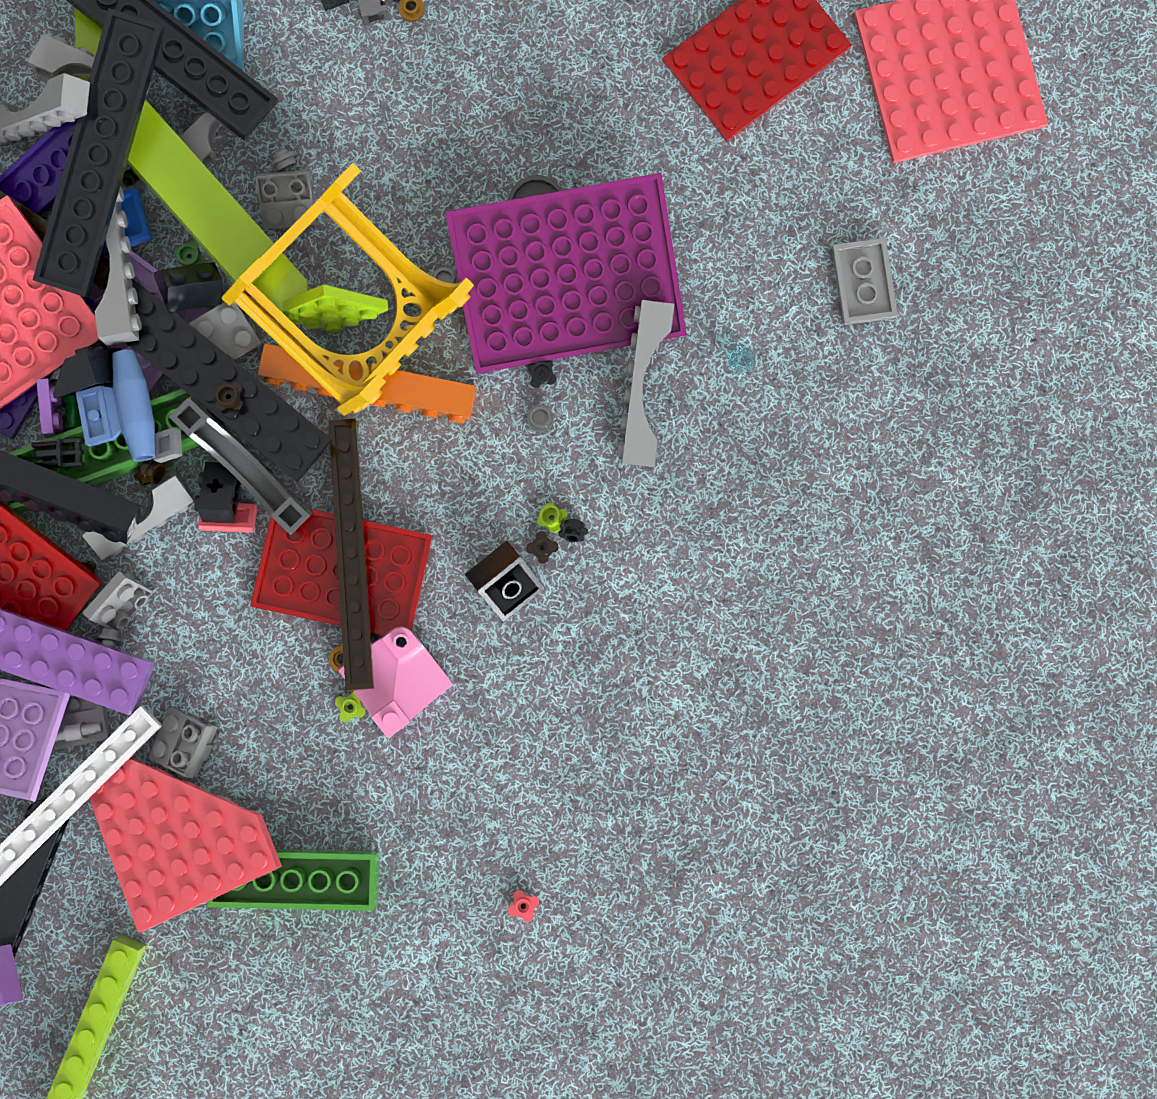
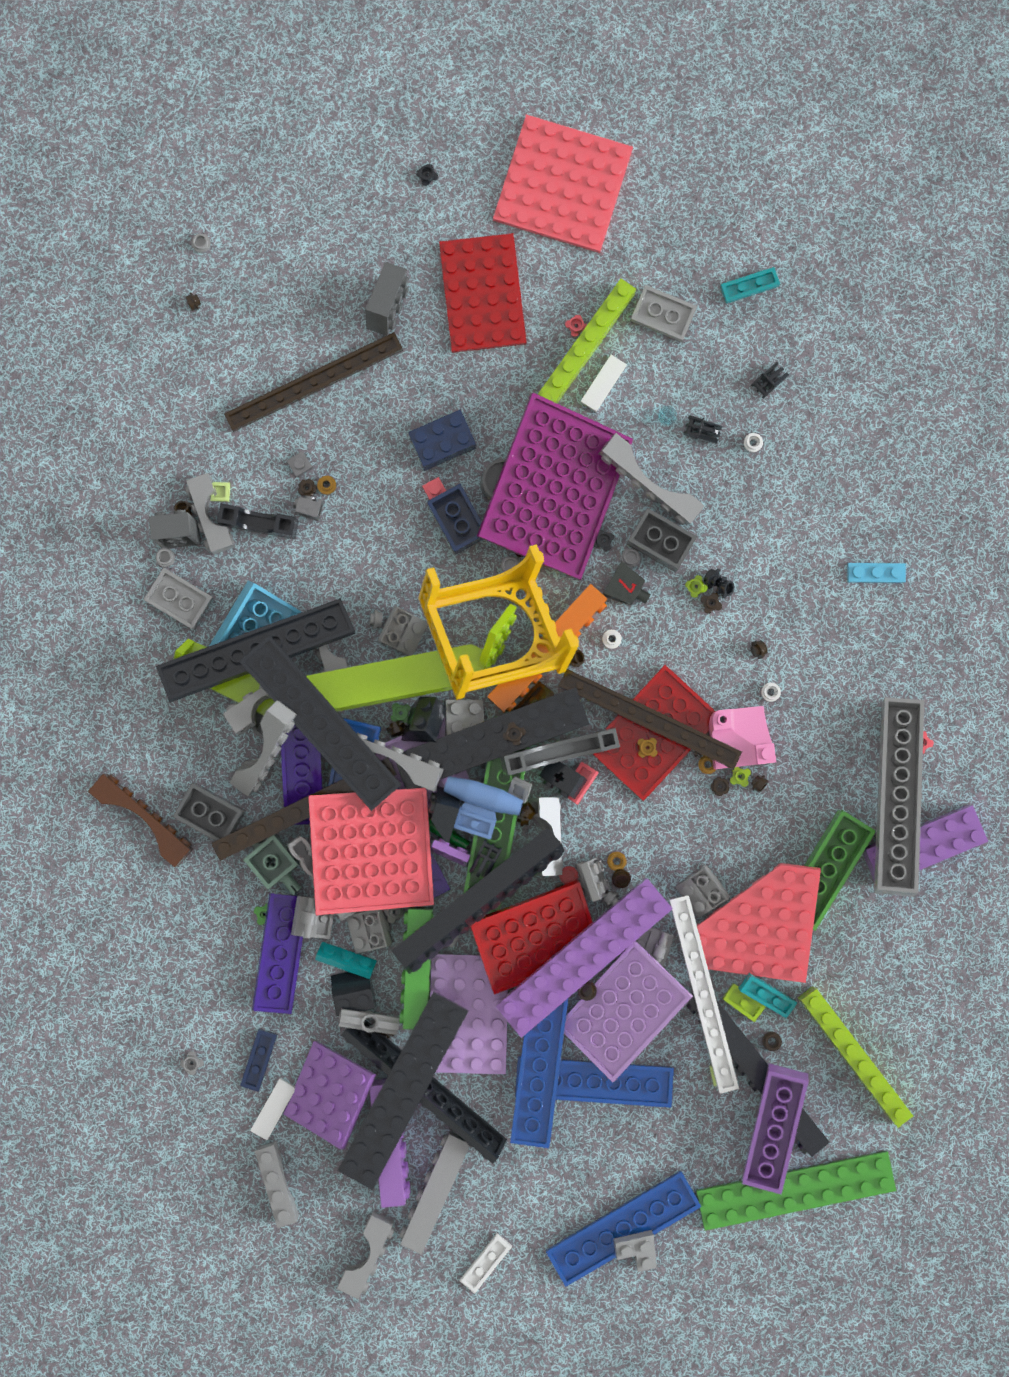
camera: 60 degrees left, 0 degrees up
(41, 937) = (778, 1041): none -> dark brown plate
(76, 872) = (743, 1003): none -> lime plate
(98, 895) = (767, 995): none -> teal plate
(108, 568) = (569, 875): none -> red plate
(141, 635) = (621, 878): none -> dark brown plate
(152, 615) = (621, 856): none -> pearl gold plate
(164, 259) = (396, 728): none -> dark brown plate
(306, 404) = (538, 693): none -> dark brown plate
(308, 572) = (652, 747): none -> pearl gold plate
(316, 690) = (720, 791): none -> dark brown plate
(355, 735) = (759, 783): none -> dark brown plate
(380, 427) = (577, 659): none -> dark brown plate
(395, 982) = (942, 838): none -> medium lavender brick
(426, 462) = (611, 645): none -> white plate
(429, 915) = (899, 797): none -> light grey brick
(459, 178) = (456, 518): none -> dark blue brick
(476, 693) = (775, 687): none -> white plate
(482, 138) = (434, 488): none -> coral plate
(500, 432) = (626, 586): none -> pearl dark grey torso
(505, 581) = (718, 637): black slope -> none
(519, 638) = (758, 649): none -> dark brown plate
(546, 108) = (442, 440): none -> dark blue brick
(571, 553) = (725, 587): none -> black plate
(581, 440) = (661, 540): none -> dark grey brick
(701, 728) = (876, 572): none -> medium azure plate
(734, 260) = (603, 383): none -> white tile
(749, 410) = (706, 431): none -> black arm
(768, 210) = (588, 341): none -> lime brick
(777, 476) = (753, 436): none -> white plate
(785, 179) = (577, 319): none -> coral plate
(858, 457) = (768, 381): none -> black arm
(964, 365) = (750, 285): none -> teal plate

